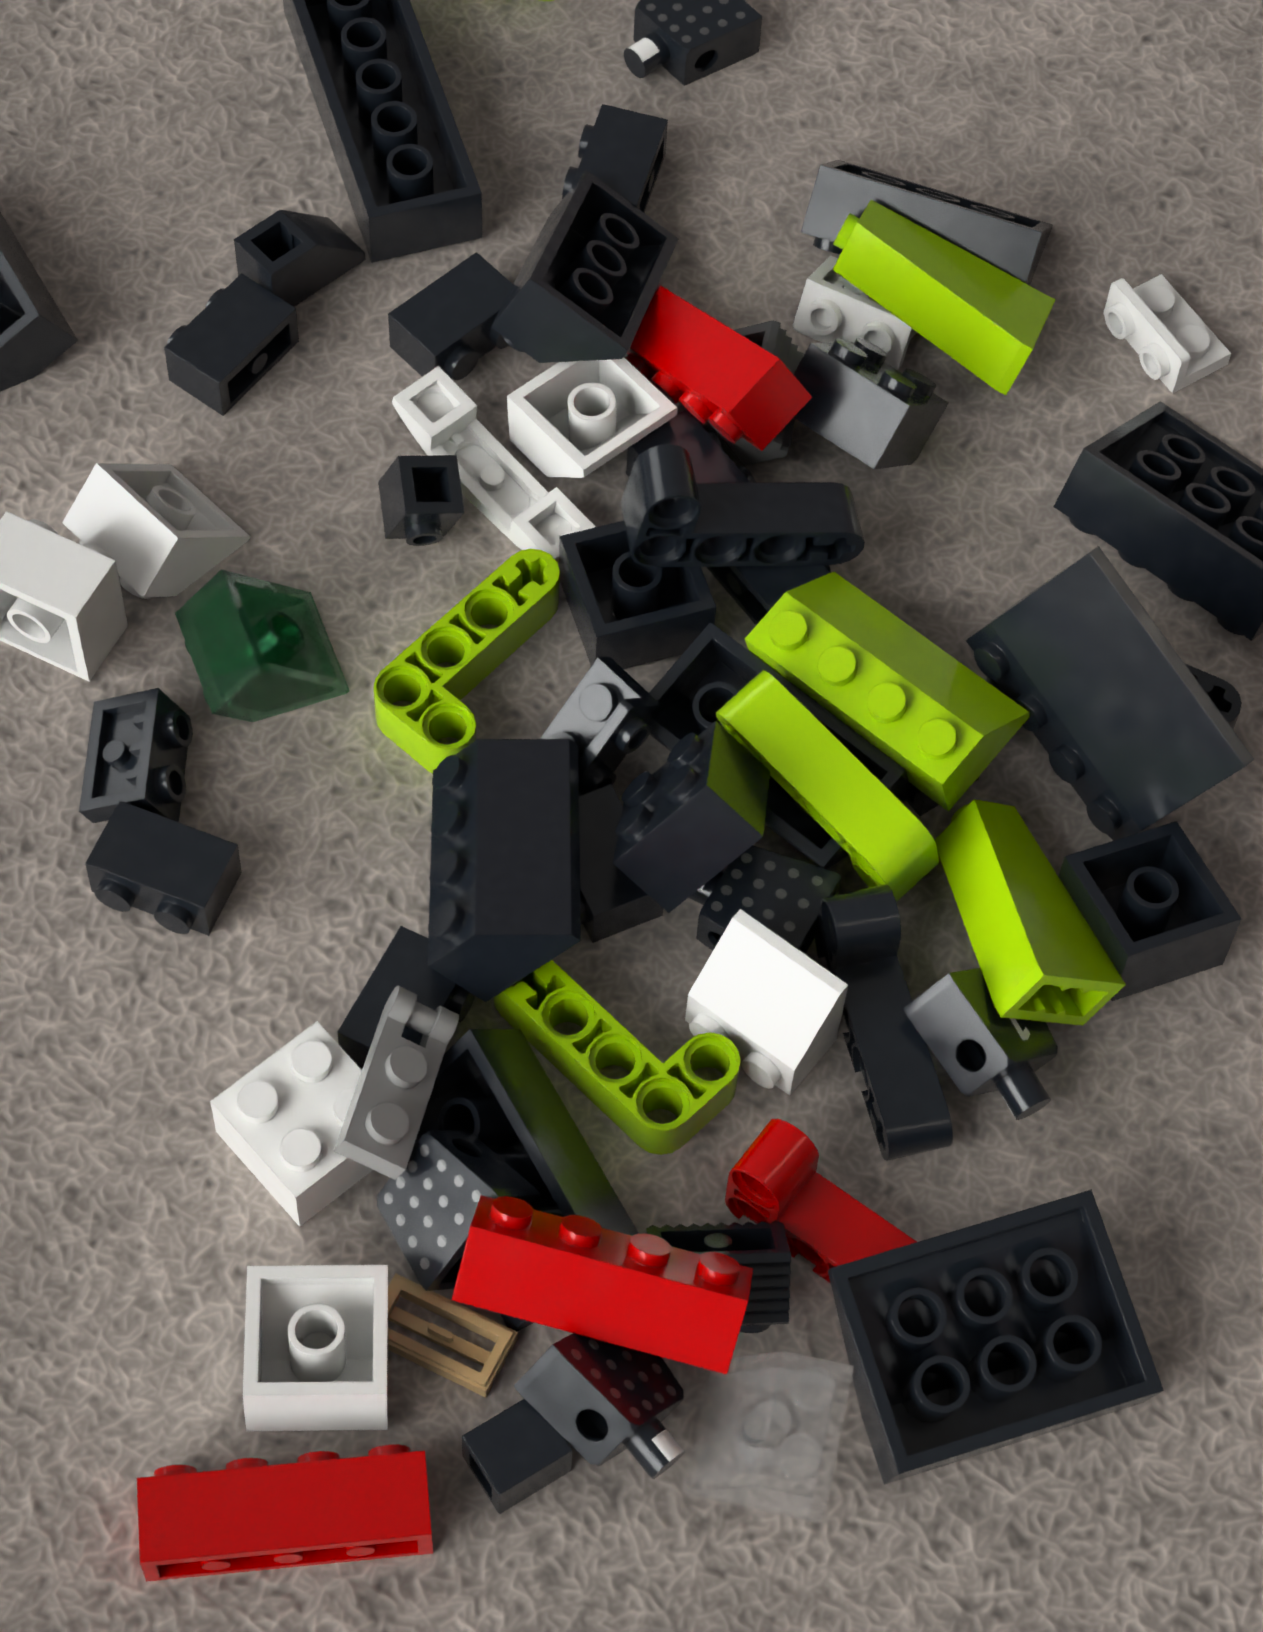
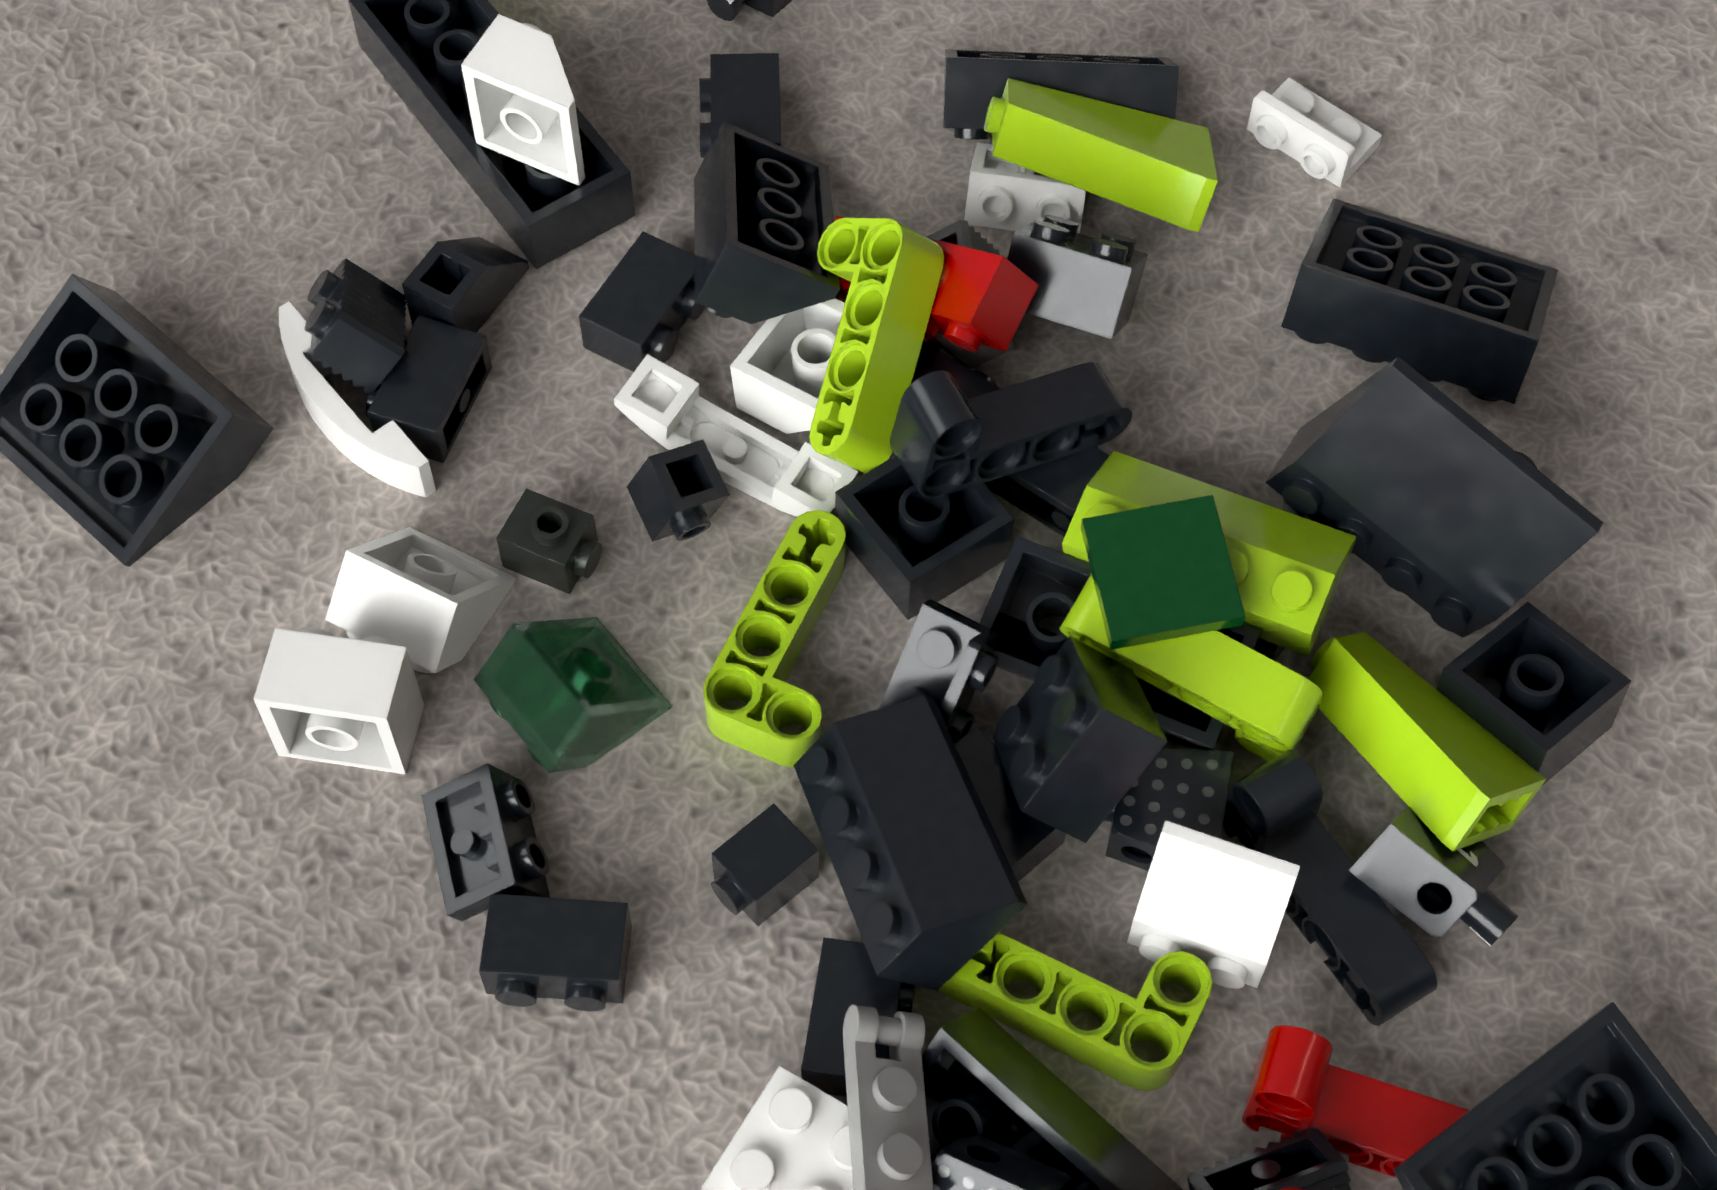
camera: 15 degrees left, 0 degrees up
(166, 388) = (384, 453): none -> white slope
(180, 265) = (356, 325): none -> black brick
(289, 511) = (549, 541): none -> pearl dark grey brick
(373, 851) = (764, 866): none -> black brick
(396, 96) = (523, 99): none -> white slope
(645, 403) = (878, 335): none -> lime beam
(819, 686) = (1162, 572): none -> dark green tile

